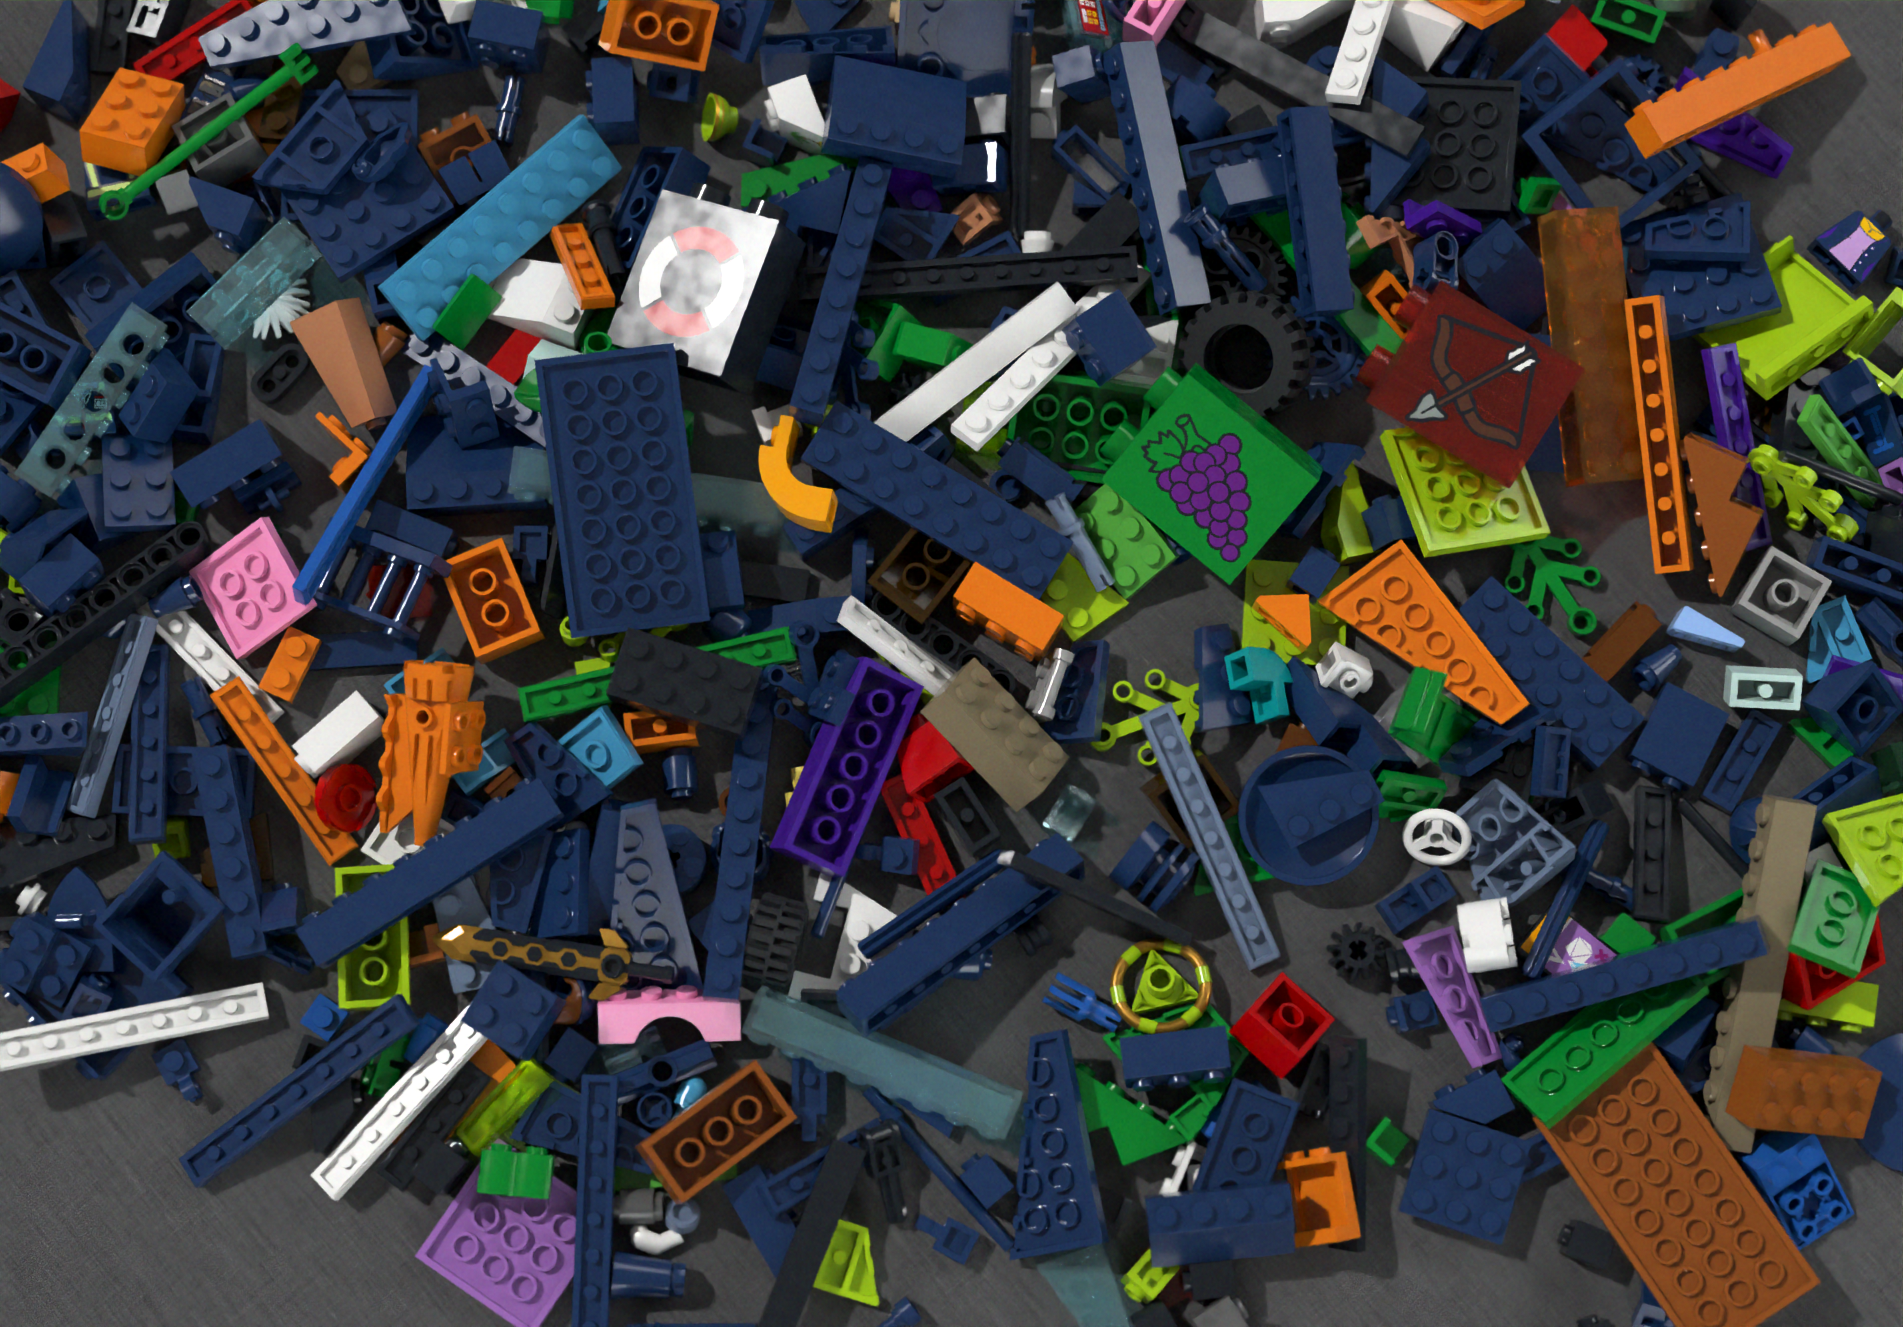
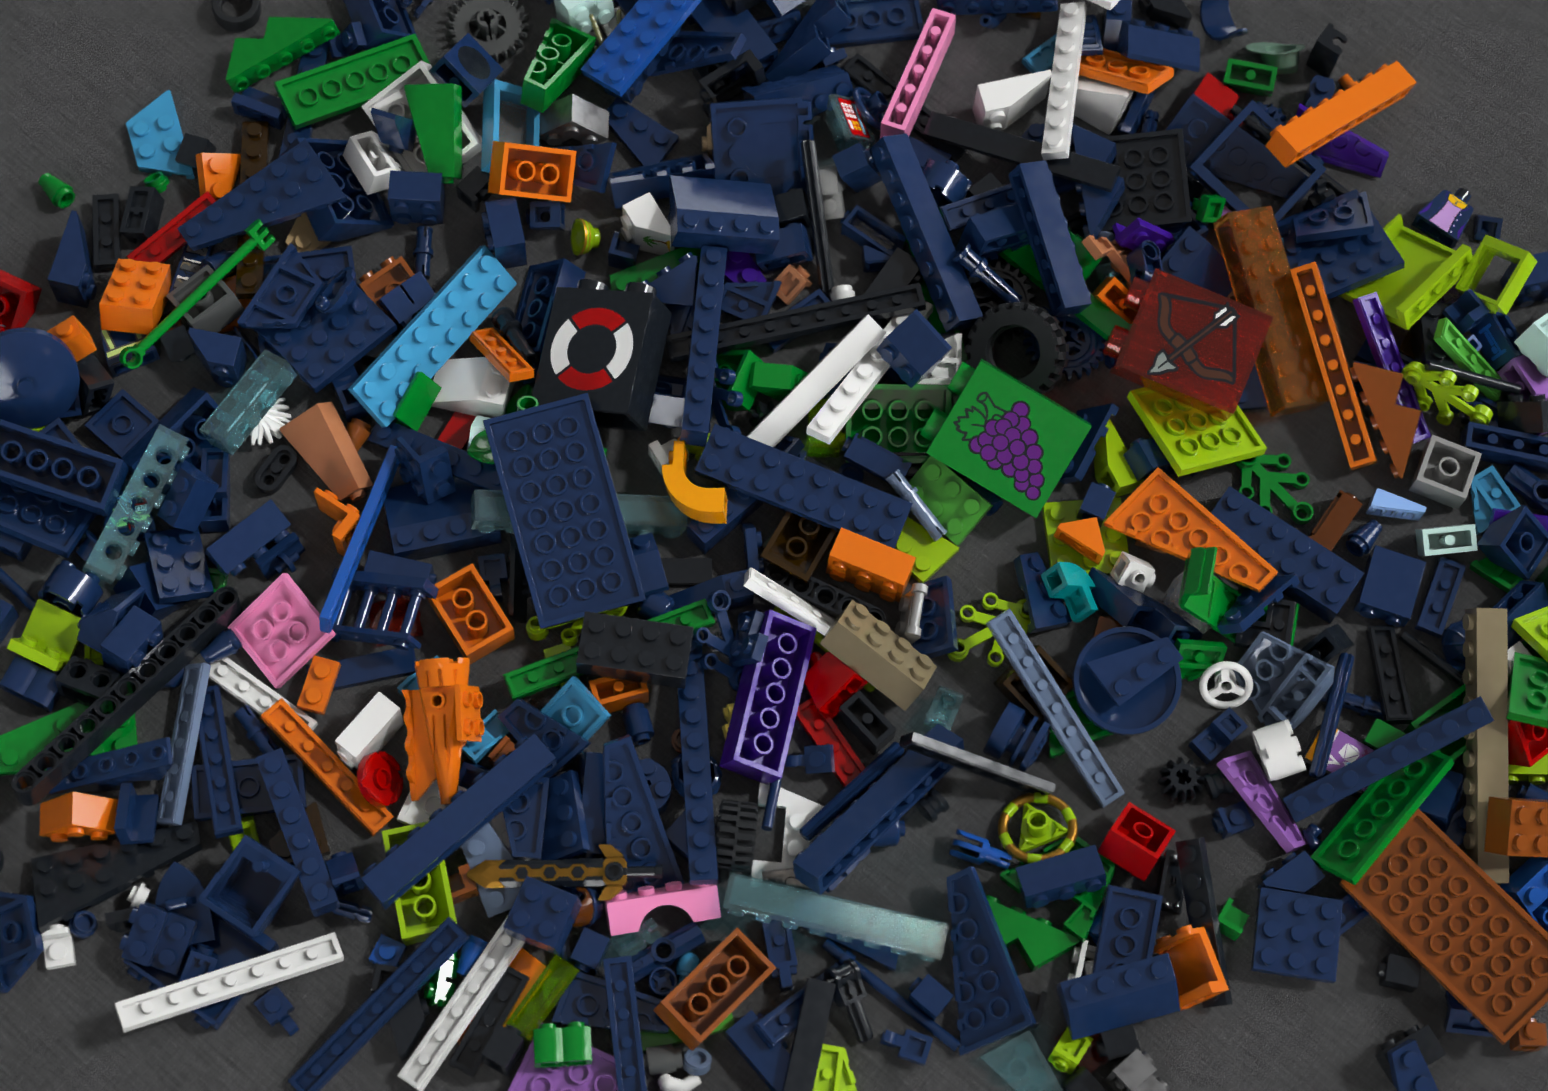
camera: 15 degrees left, 10 degrees down
(1550, 761) = (1301, 613): dark blue plate -> none

